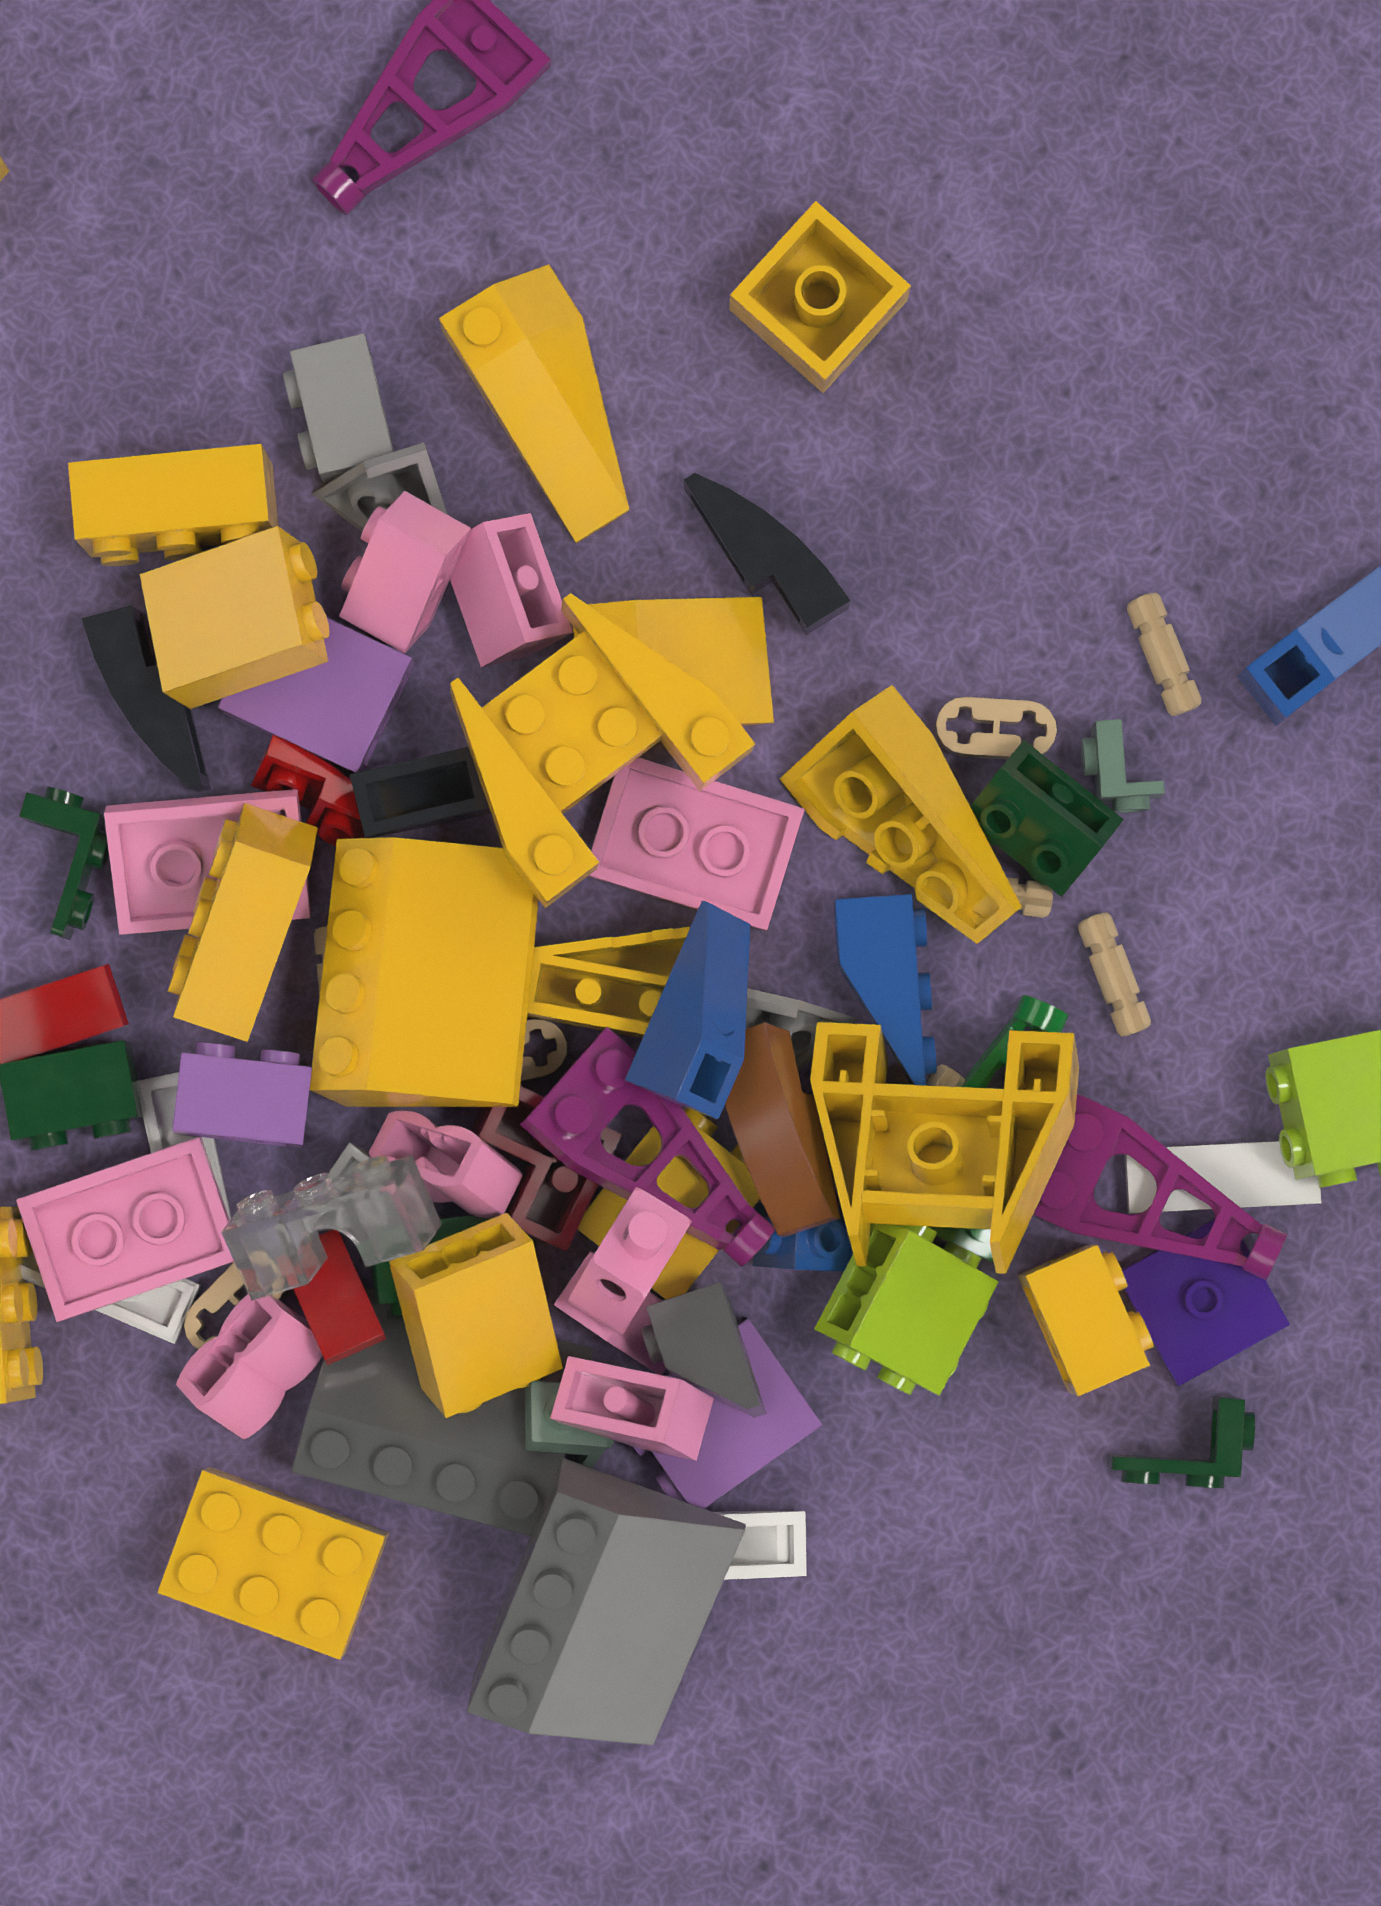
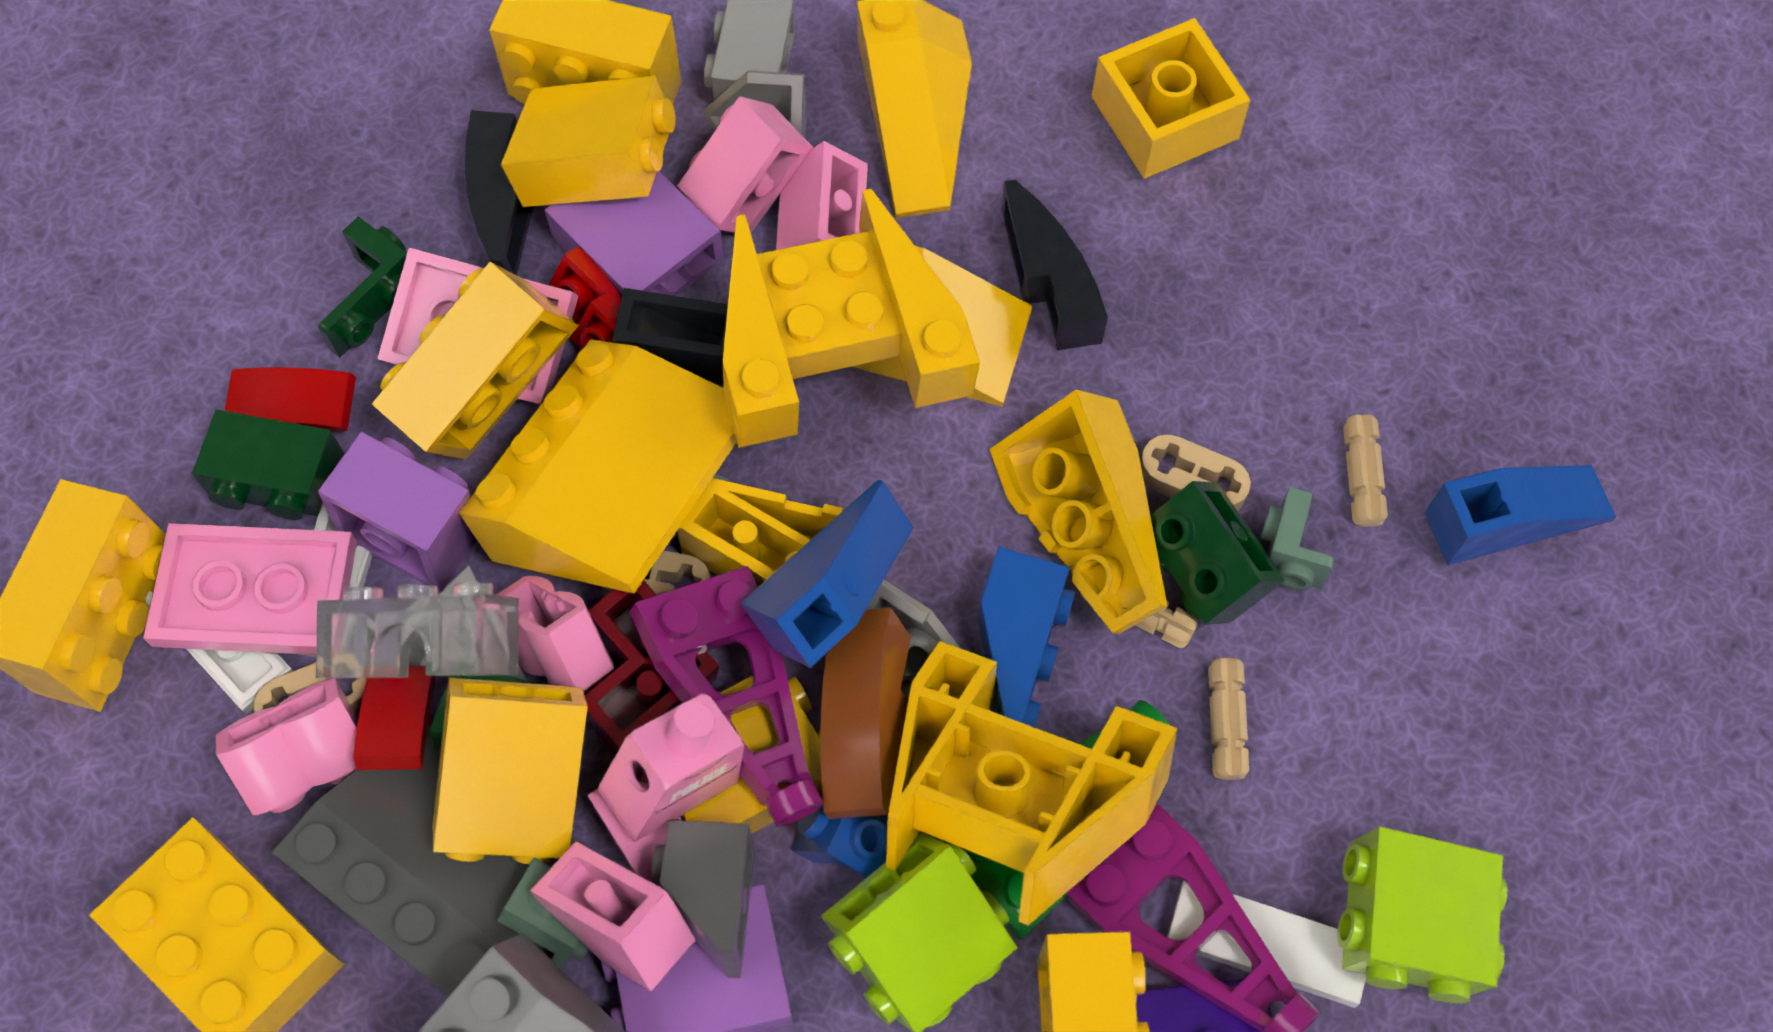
camera: 20 degrees right, 20 degrees down
(694, 844) = (882, 437): bright pink plate -> none

